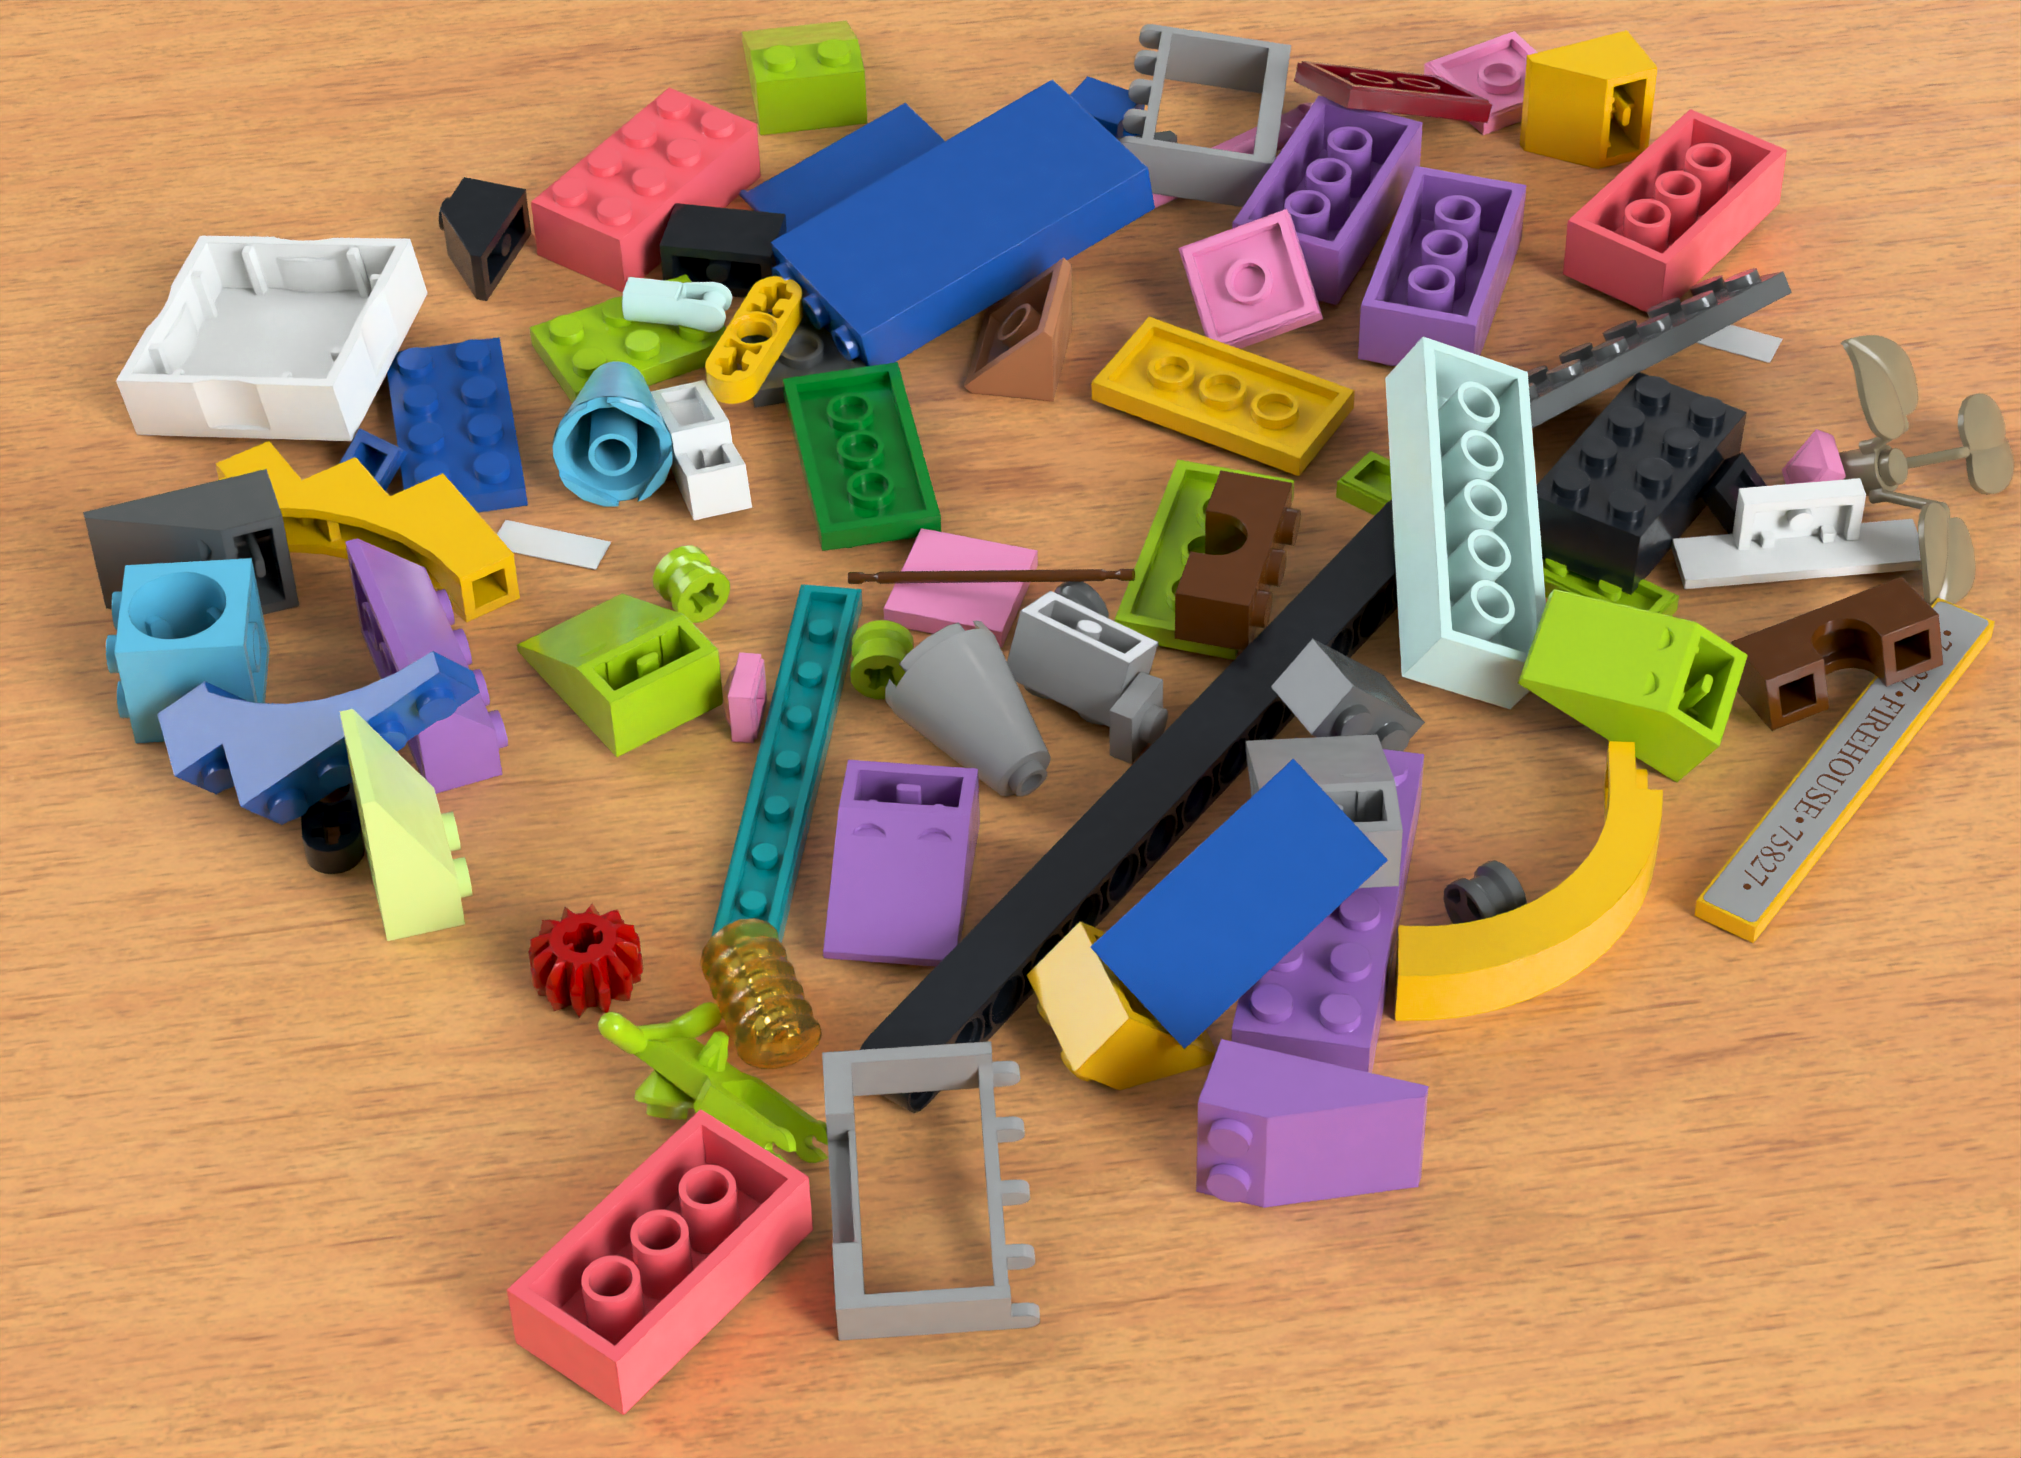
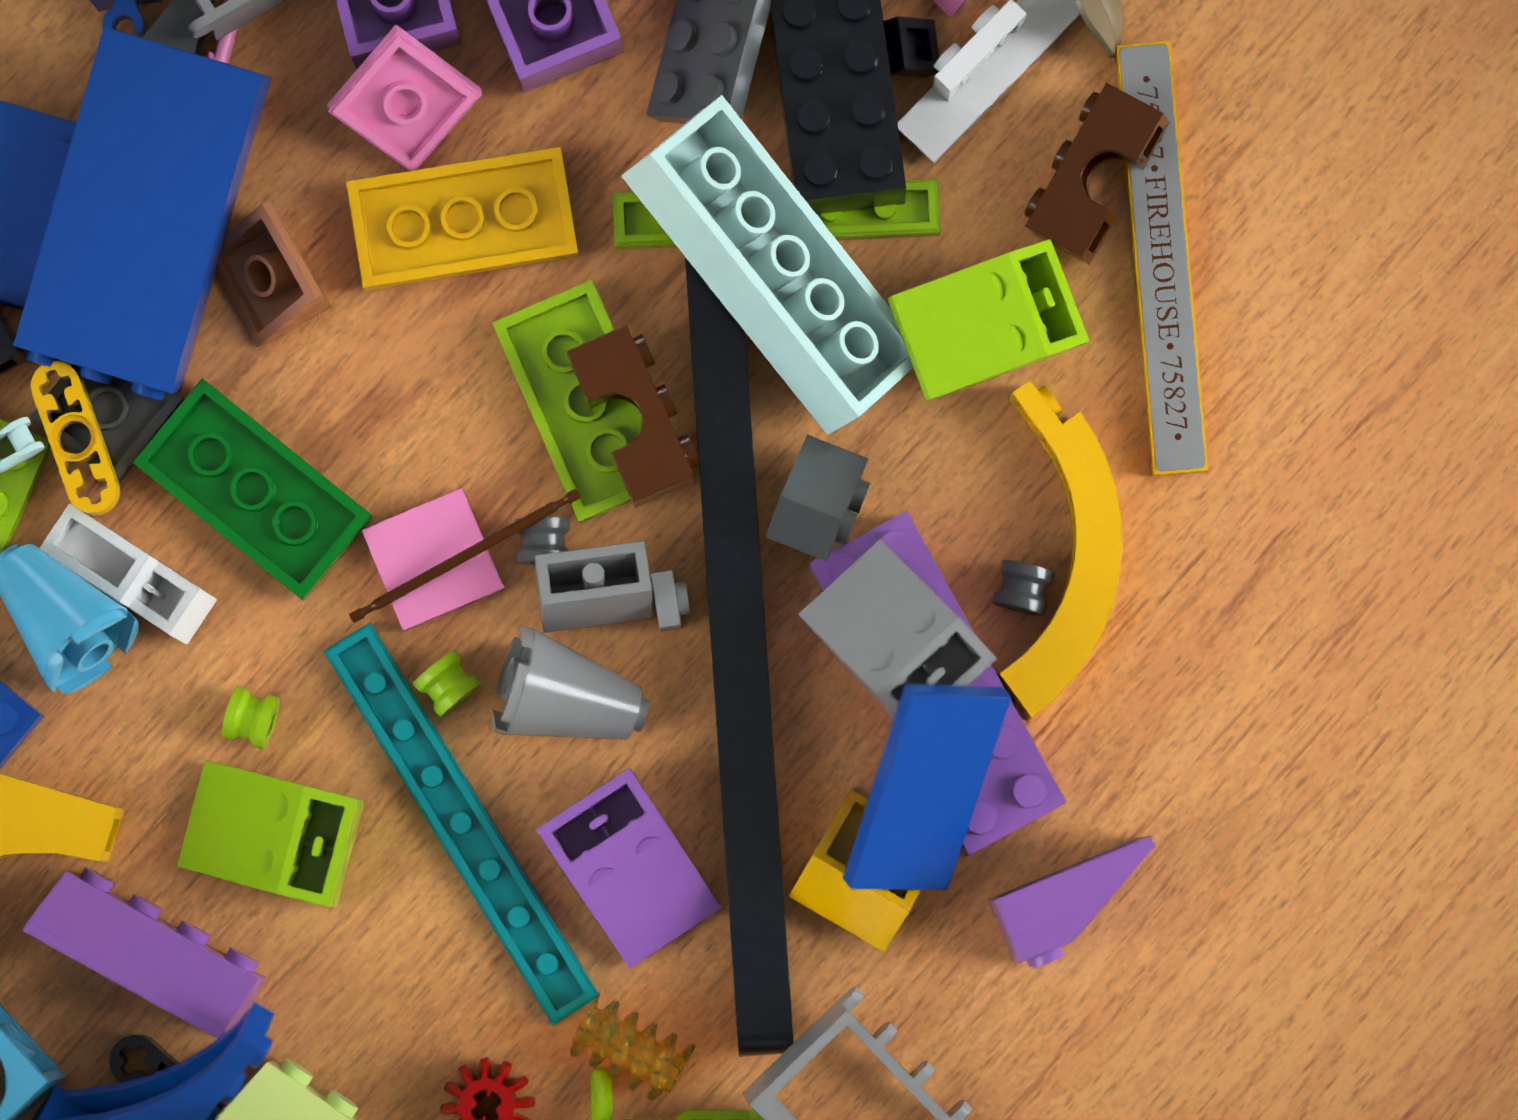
camera: 40 degrees left, 40 degrees up
(553, 544) = (98, 742): white sticker -> none
(745, 697) = (384, 794): bright pink tile -> none

